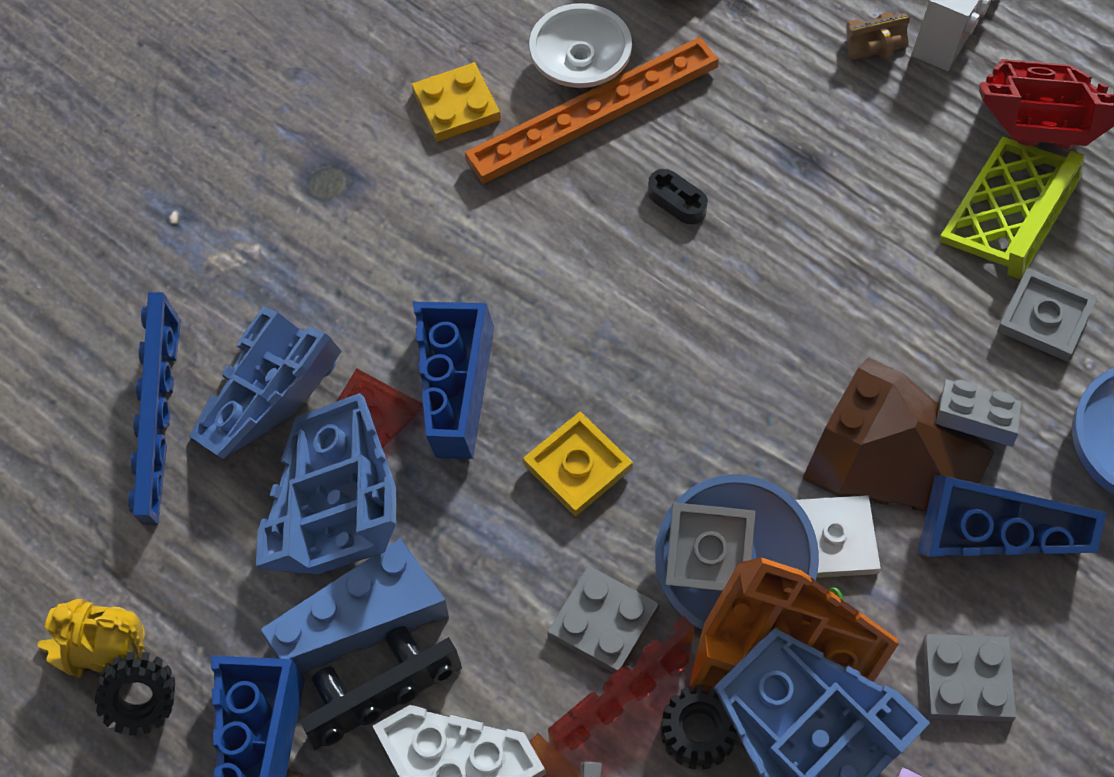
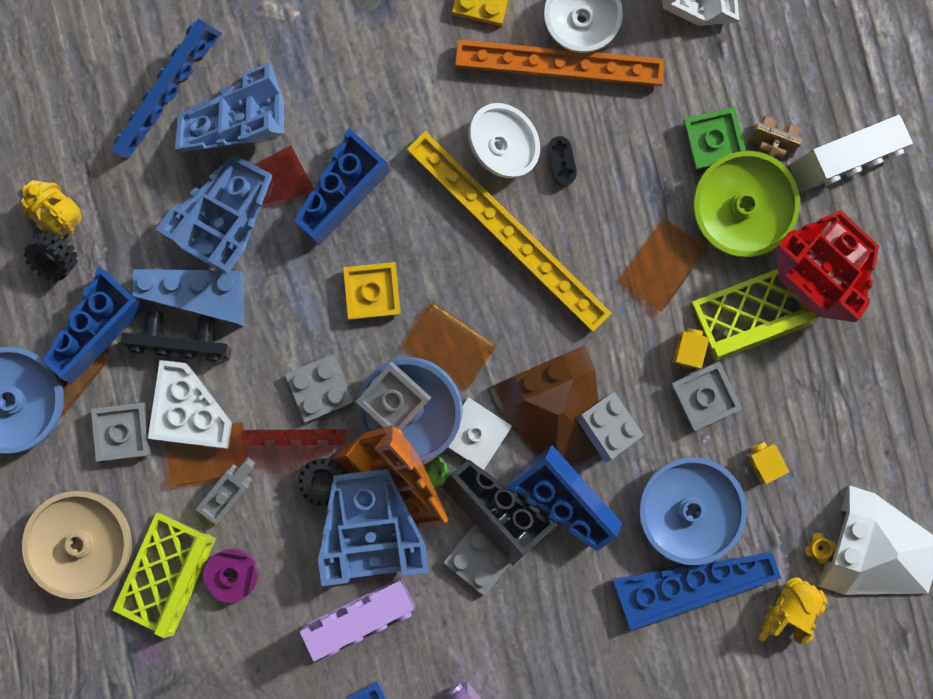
camera: 35 degrees right, 25 degrees up
(599, 209) = (512, 135): none -> white dish
(683, 298) = (509, 231): none -> yellow plate
(707, 452) = (449, 344): none -> clear orange piece
(817, 74) = (713, 136): none -> bright green plate
(875, 224) = (663, 264): none -> clear orange piece
(907, 105) = (746, 203): none -> lime dish
(943, 597) = (497, 511): none -> black wedge
(986, 279) = (690, 349): none -> yellow brick

